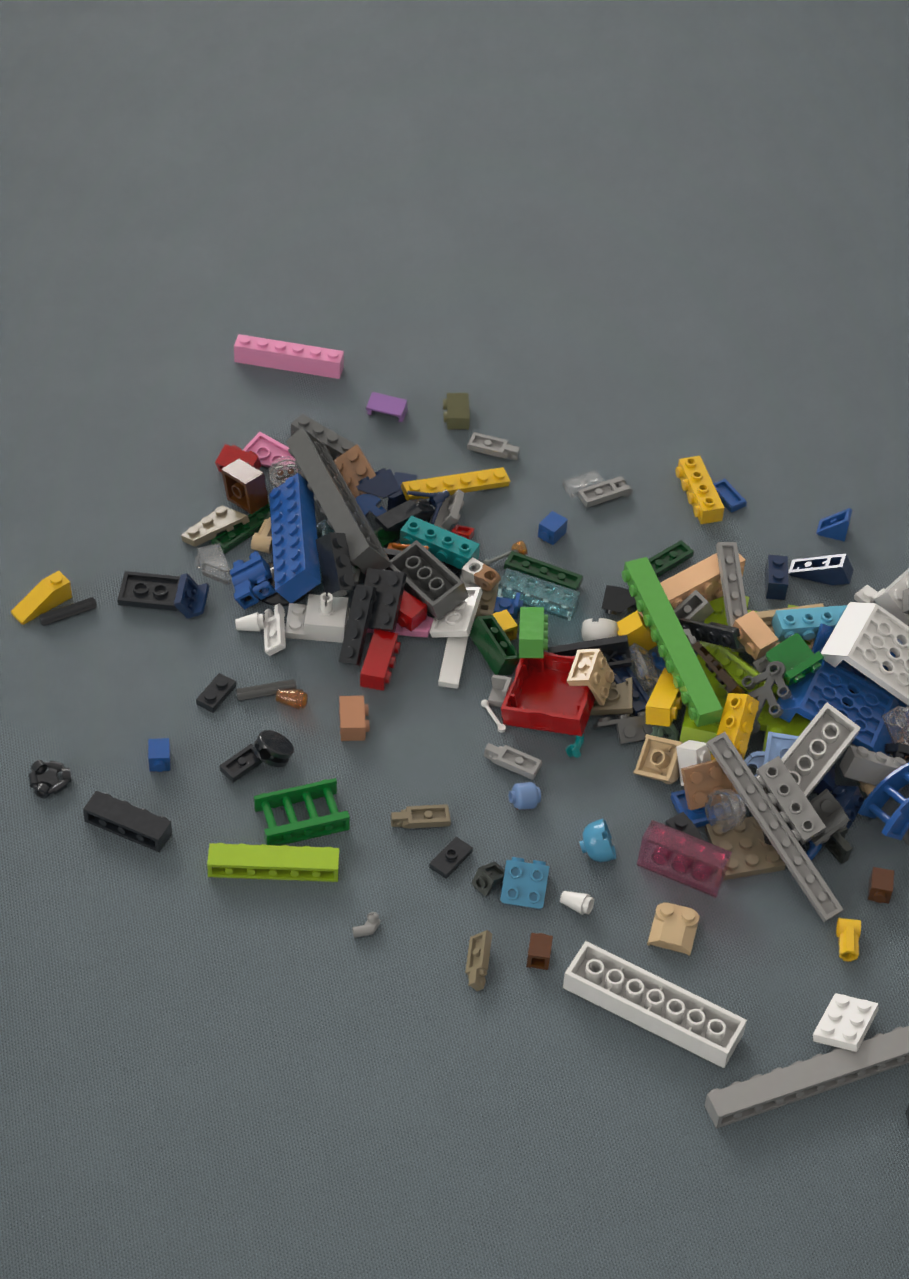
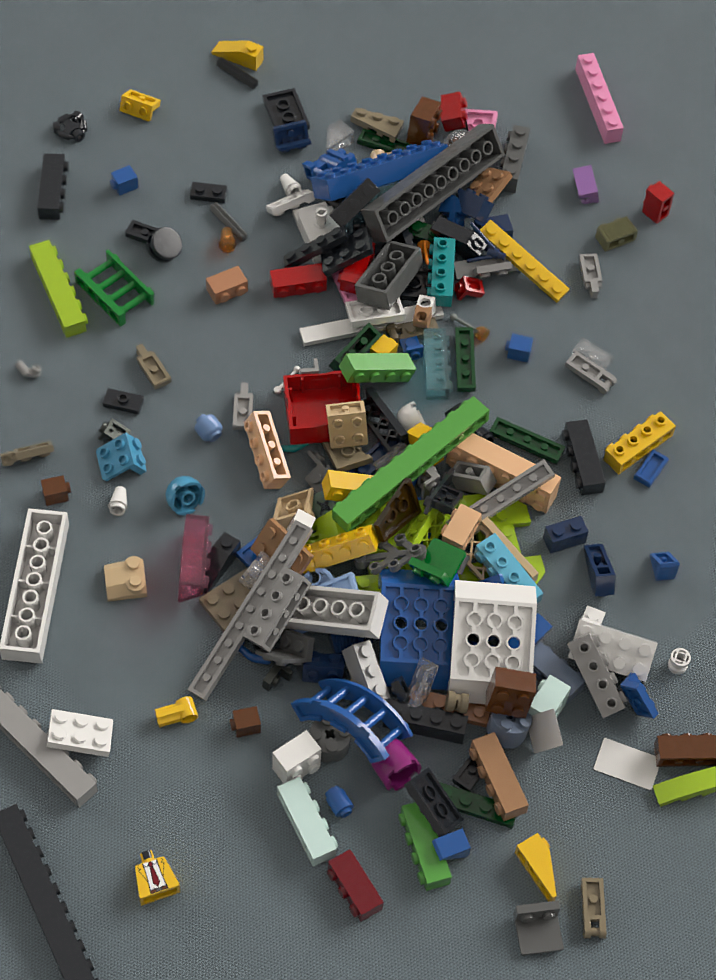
camera: 65 degrees right, 10 degrees up
(59, 707) = (138, 104): none -> yellow bracket
(443, 365) = (657, 202): none -> red brick
(582, 754) = (266, 450): none -> light nougat brick
(695, 530) = (583, 457): none -> black brick

